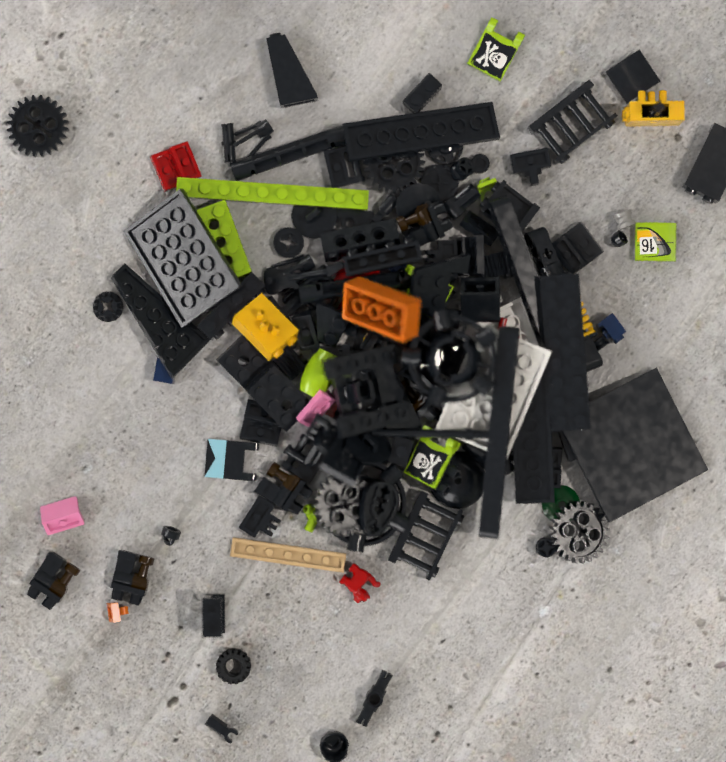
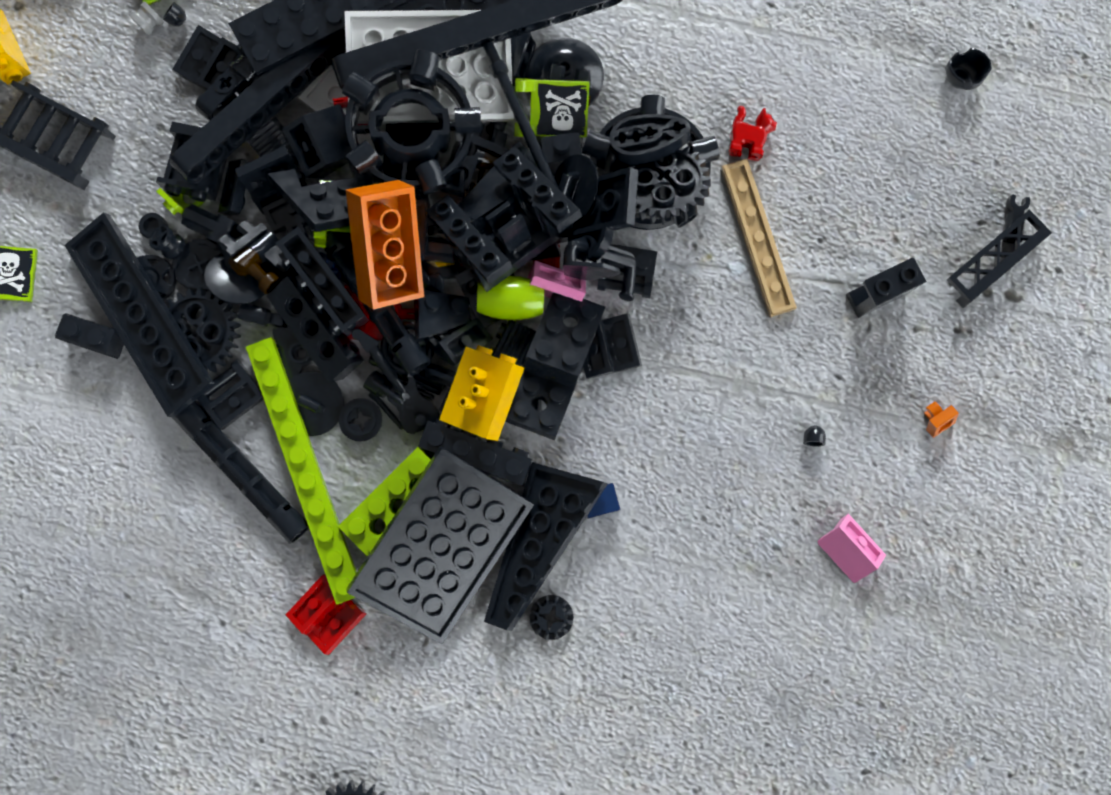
camera: 115 degrees left, 5 degrees down
(47, 582) = (949, 521): black hips -> none
(127, 581) = (894, 420): black hips -> none
(142, 527) = (814, 436): none -> black hinge
(171, 533) = (805, 396): black tile -> none
(195, 708) = (1000, 268): none -> black fence
(227, 143) = (263, 558): black pin -> none
(227, 458) = (677, 369): black flag -> none
(229, 677) = (945, 231): black tyre -> none
(259, 518) = (730, 292): black hinge -> none
(261, 129) = (227, 523): black plant -> none
(286, 494) = (683, 271): black hips -> none
(290, 78) = (140, 517): black slope -> none
(311, 523) = (696, 228): lime arm -> none
(369, 707) = (895, 49): black pin -> none
(415, 519) = (688, 105): black fence -> none
(531, 163) = (125, 162): black hinge -> none

